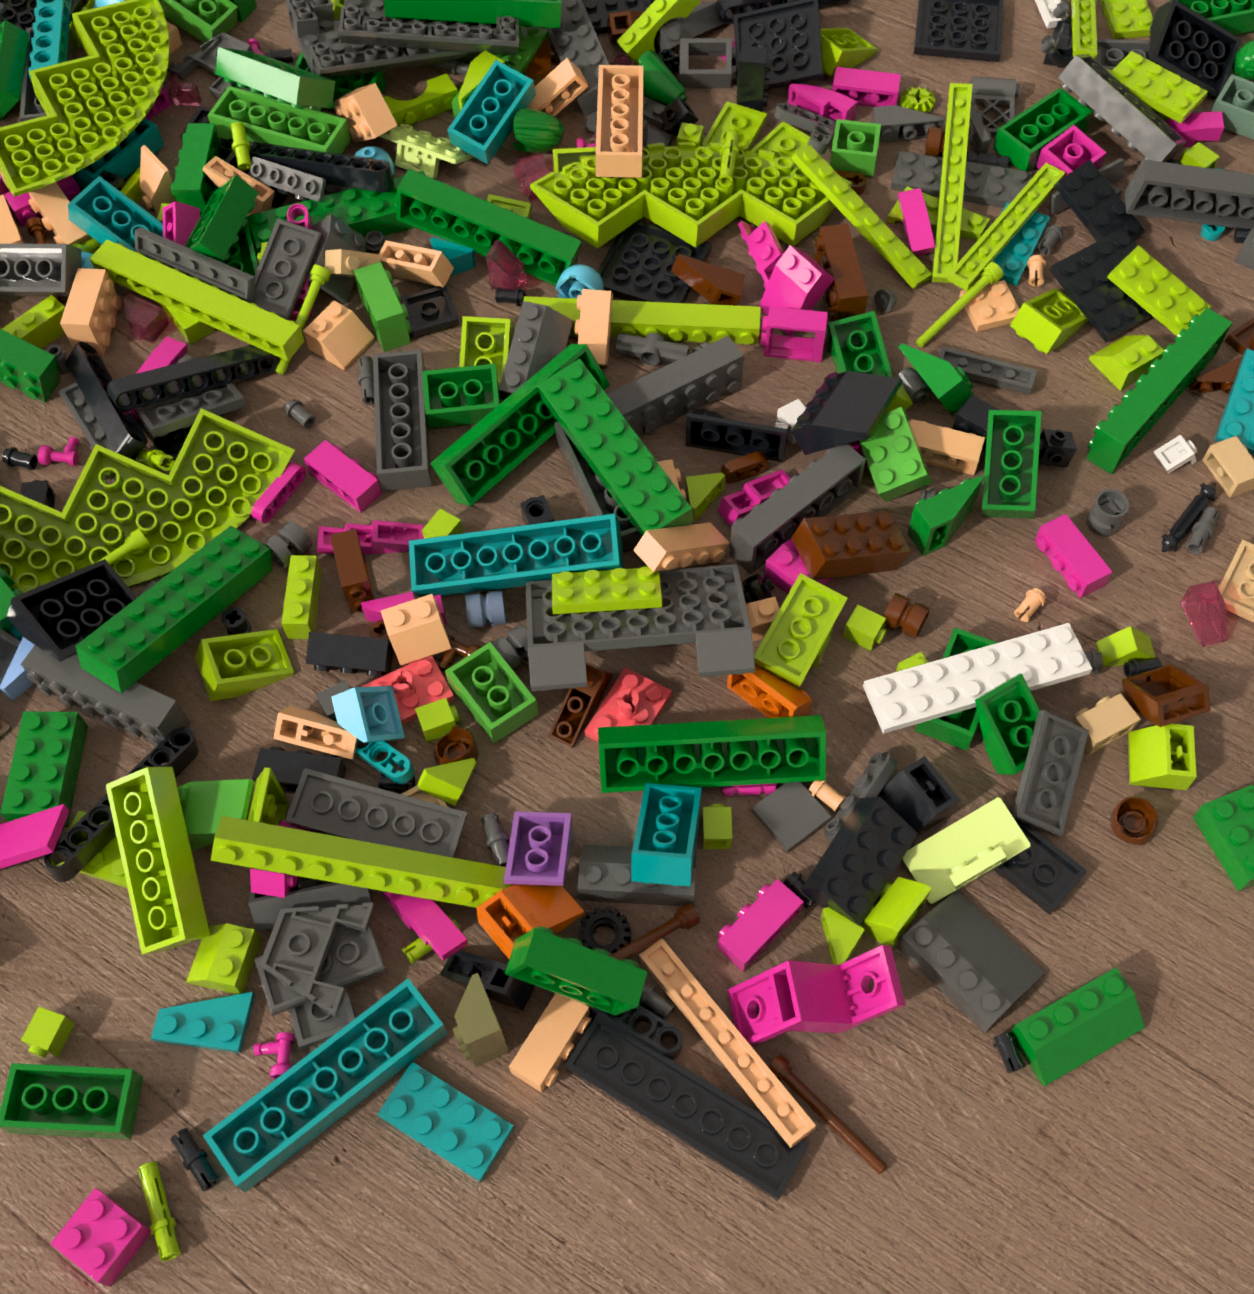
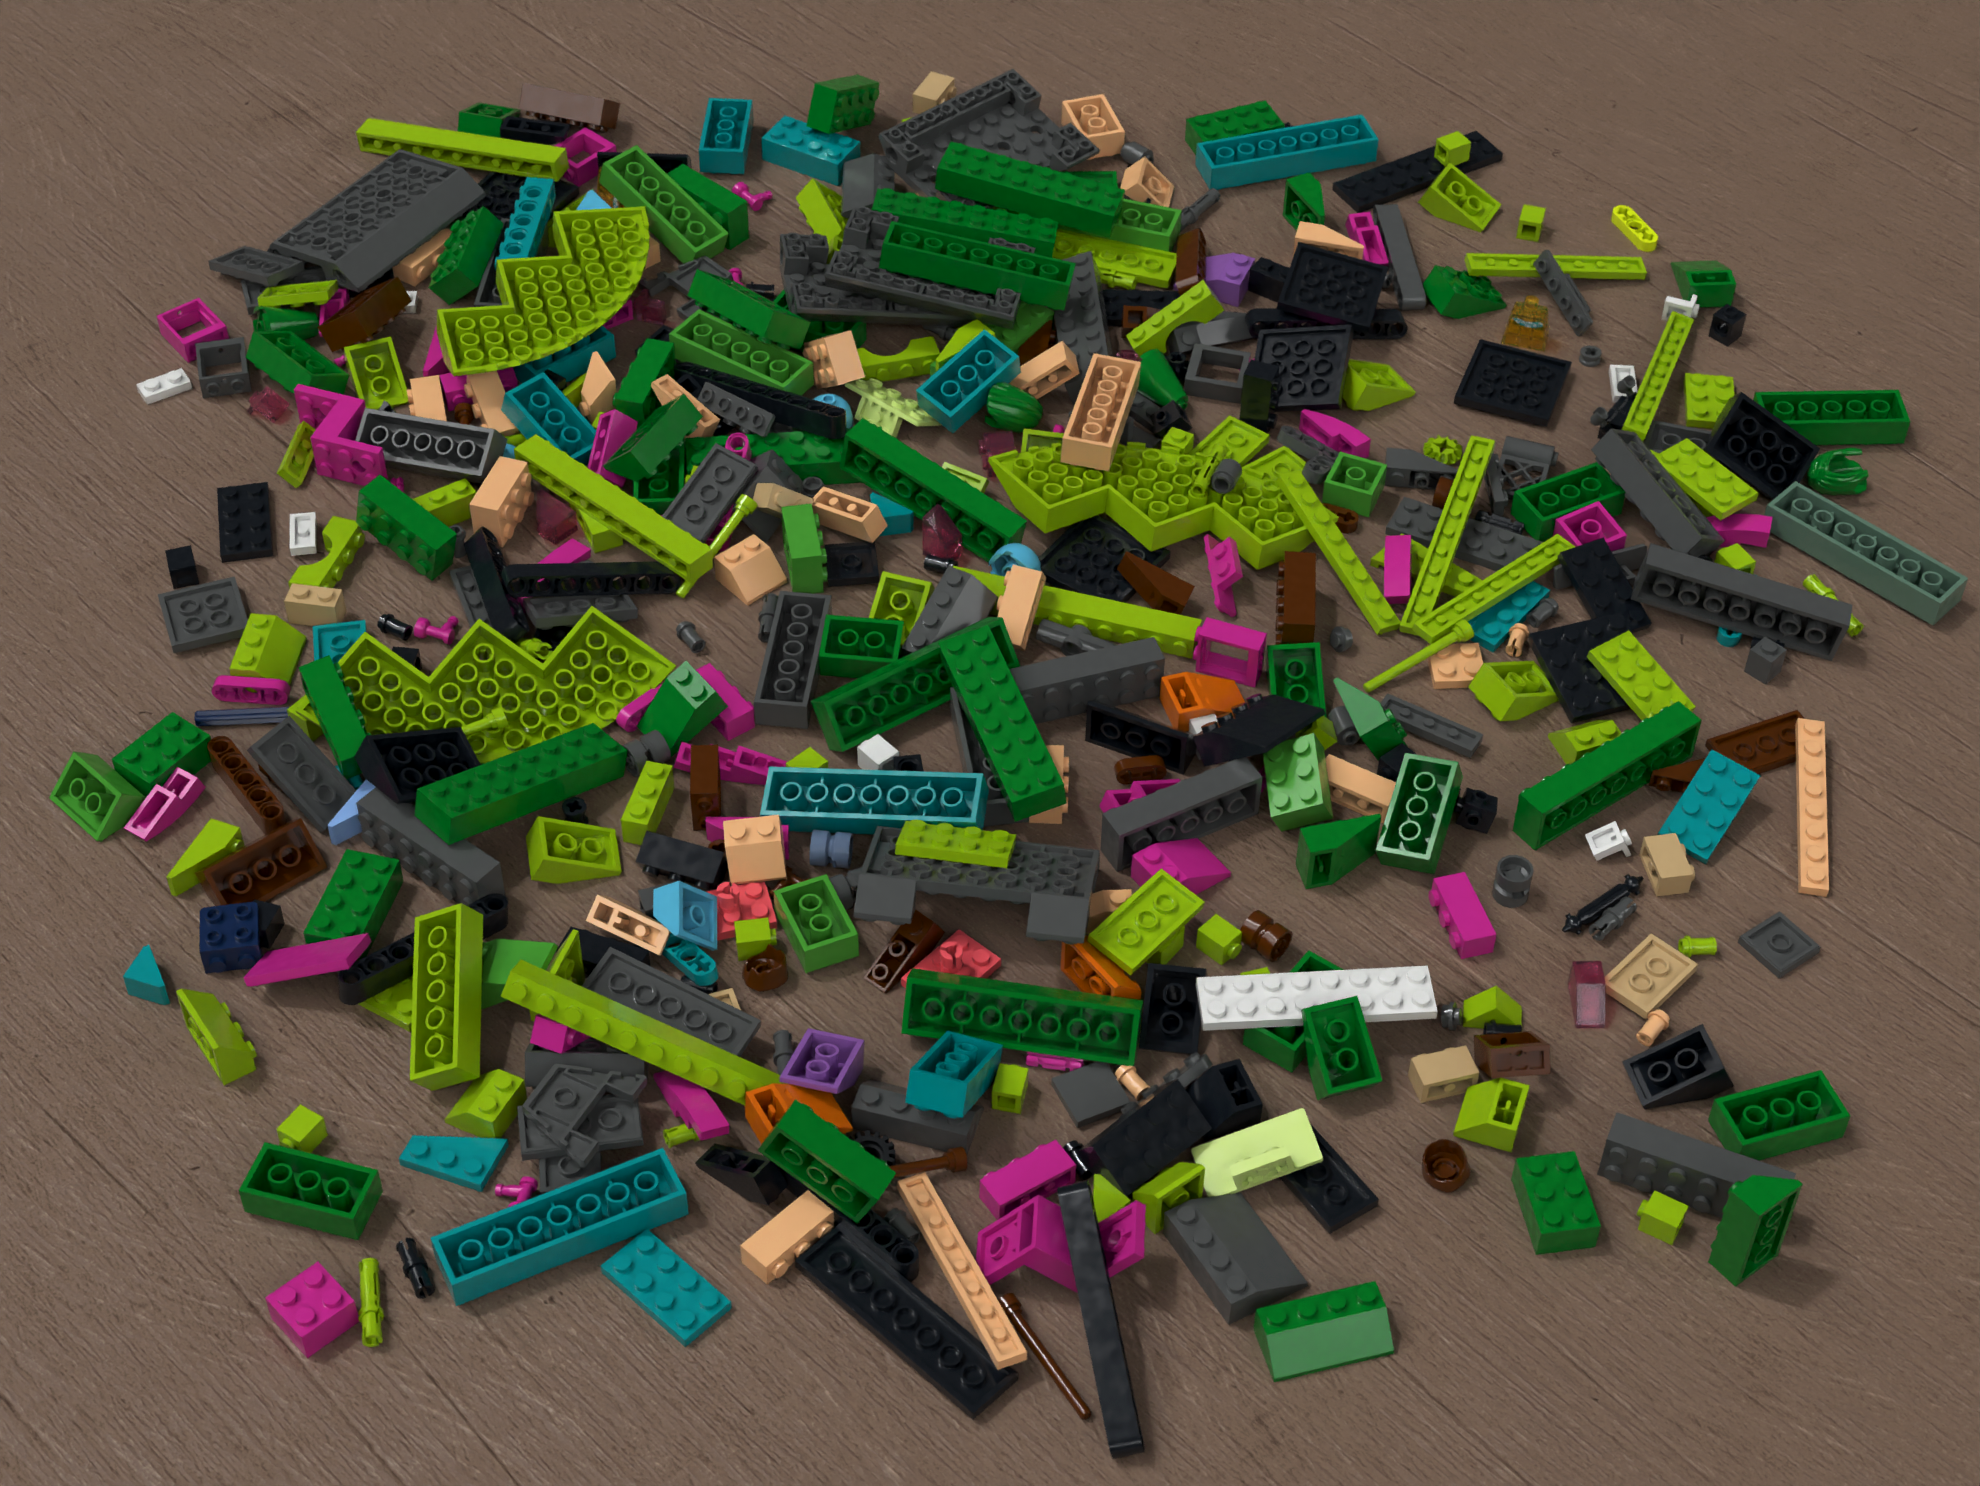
camera: 10 degrees right, 15 degrees down
(195, 264) = (620, 472): dark grey tile -> none
(241, 146) = (696, 369): lime pin -> none
(310, 492) = (682, 707): none -> green slope
(447, 780) = (749, 990): lime slope -> none
(477, 1025) = (719, 1200): olive slope -> none
(503, 504) = (876, 754): none -> white brick
(681, 546) = (1046, 822): light nougat brick -> none
(702, 491) = (1089, 784): lime slope -> none
(746, 162) = (1226, 476): none -> dark grey brick
(757, 588) = (1117, 880): black gear -> none
(778, 384) = (1196, 695): none -> orange slope
(795, 283) = (1244, 600): dark pink slope -> none
(845, 711) = (1171, 1009): none -> black slope
(850, 544) = (1225, 856): reddish brown brick -> none
(867, 86) = (1388, 427): dark pink brick -> none
(878, 1076) = (1100, 1320): none -> black beam
(1009, 1052) = (1245, 1332): black pin -> none
(1034, 599) = (1408, 948): light nougat pin -> none
(1050, 773) = (1366, 1102): dark grey tile -> none

